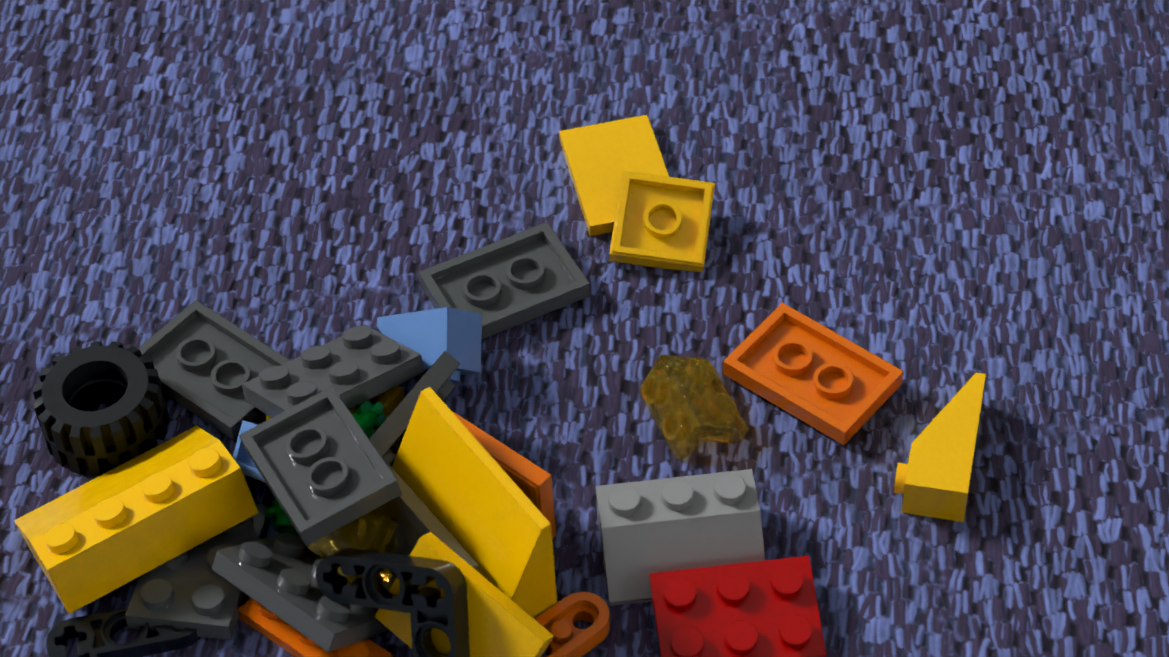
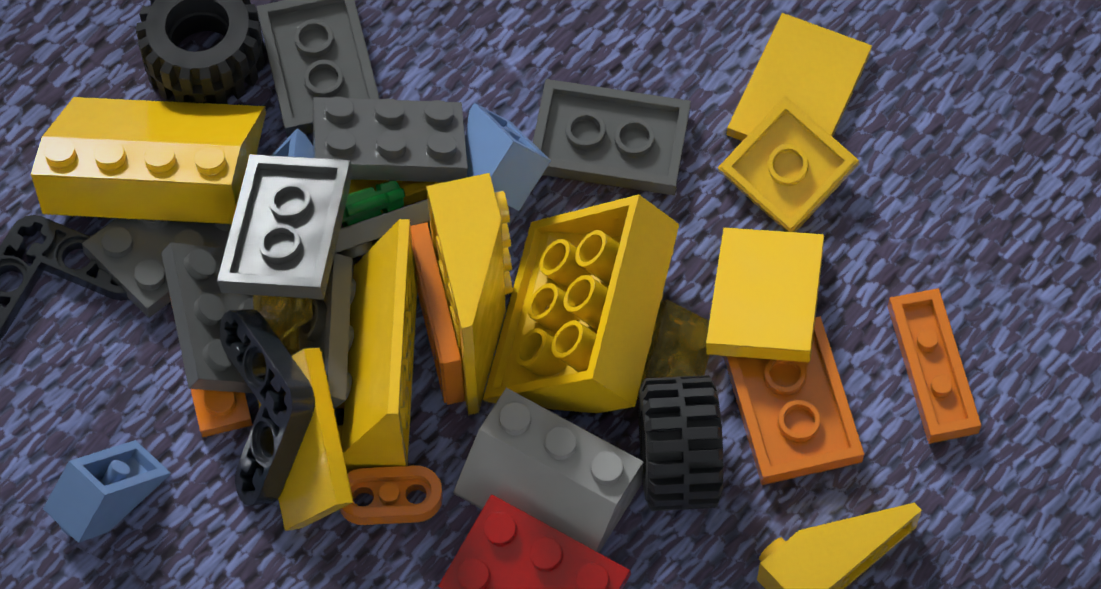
camera: 35 degrees right, 15 degrees up
(504, 390) = (474, 267): none -> yellow slope
(599, 400) = (585, 307): none -> yellow slope
(729, 312) = (765, 295): none -> yellow tile
(775, 431) = (681, 443): none -> black tyre
(893, 287) = (934, 366): none -> orange plate

